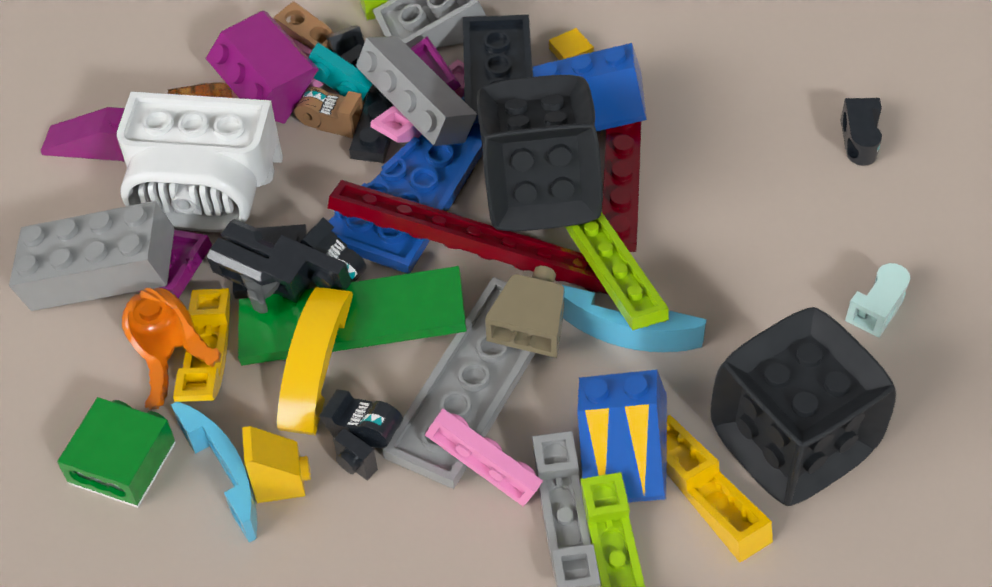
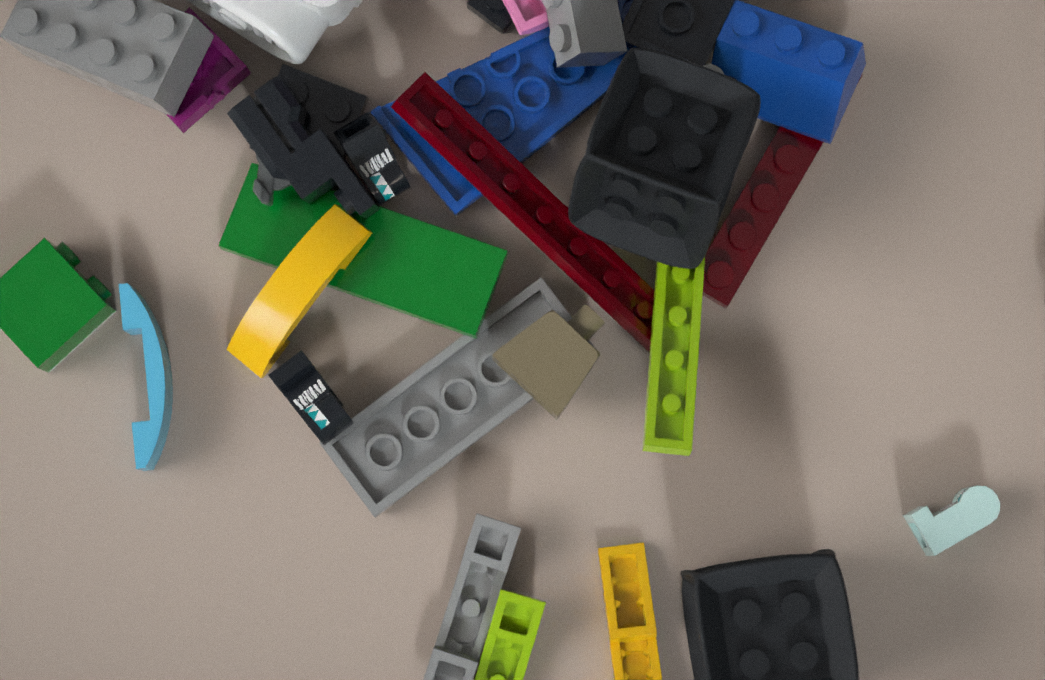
camera: 20 degrees right, 30 degrees up
(154, 326) = (144, 163): orange hair -> none
(211, 320) = (187, 216): yellow slope -> none
(274, 465) = (198, 411): yellow slope -> none
(355, 454) = (287, 432): black plate -> none
(484, 457) = (416, 511): bright pink plate -> none
(625, 431) = (575, 555): blue slope -> none
(675, 335) = (617, 368): medium azure slope -> none

